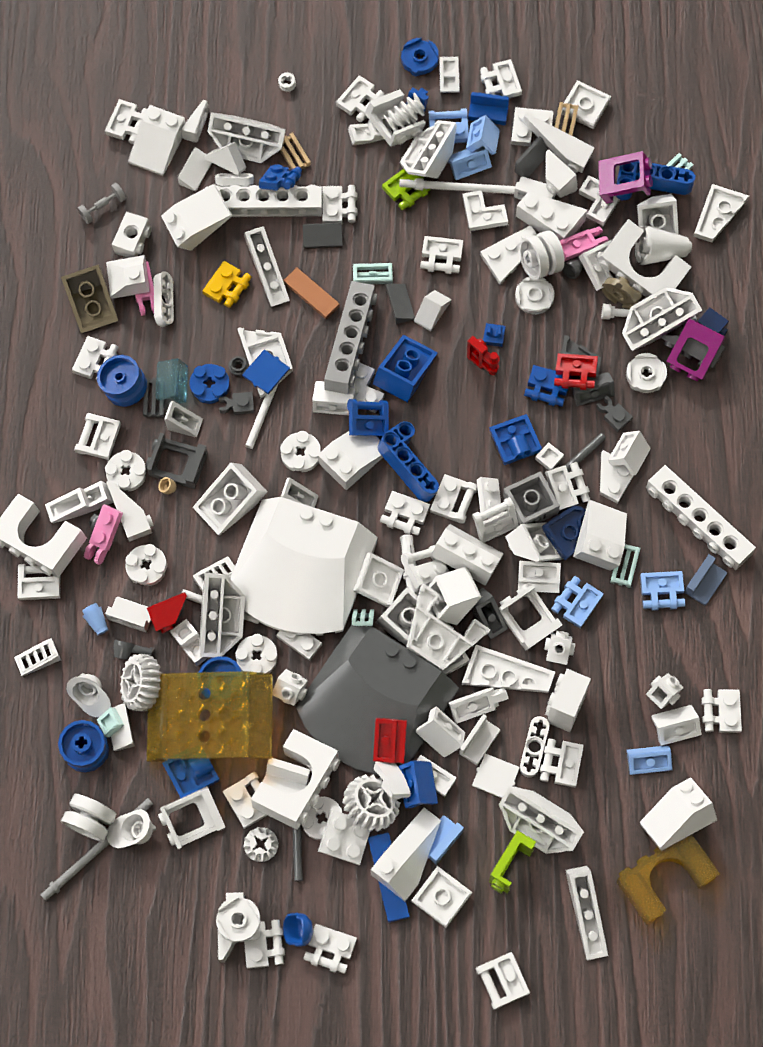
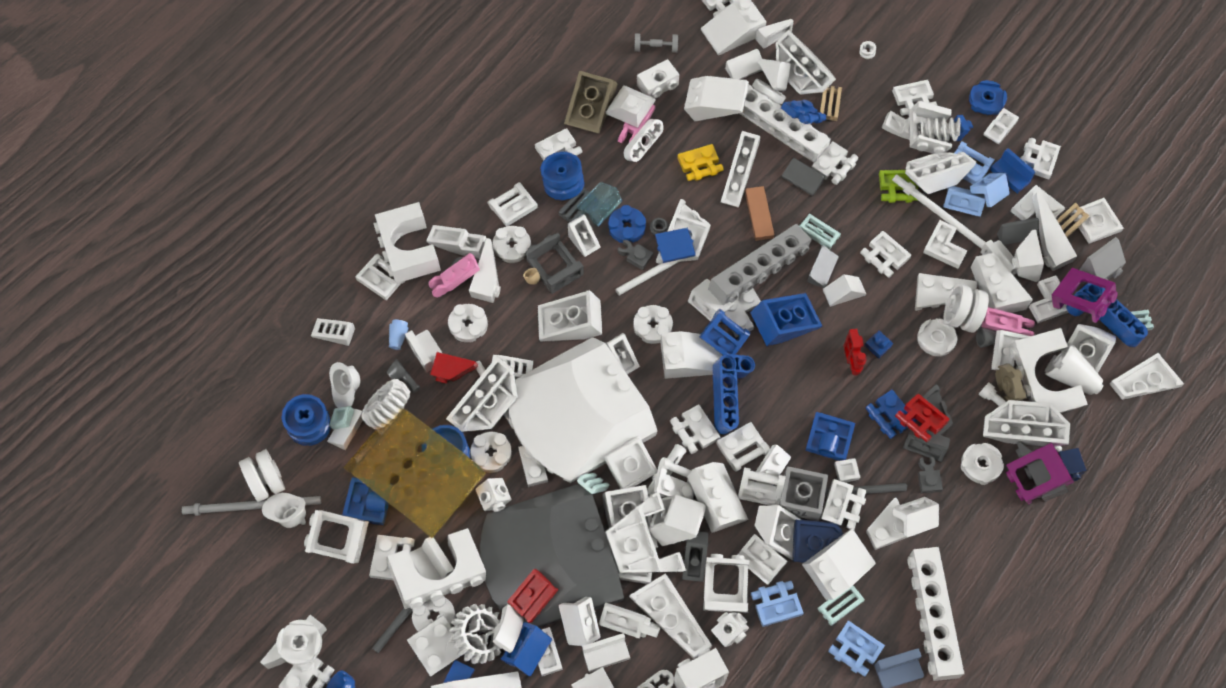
camera: 35 degrees right, 5 degrees down
(189, 641) = (450, 397): white slope -> none
(260, 854) = (378, 605): white gear -> none
(620, 137) = (1106, 261): none -> light grey slope

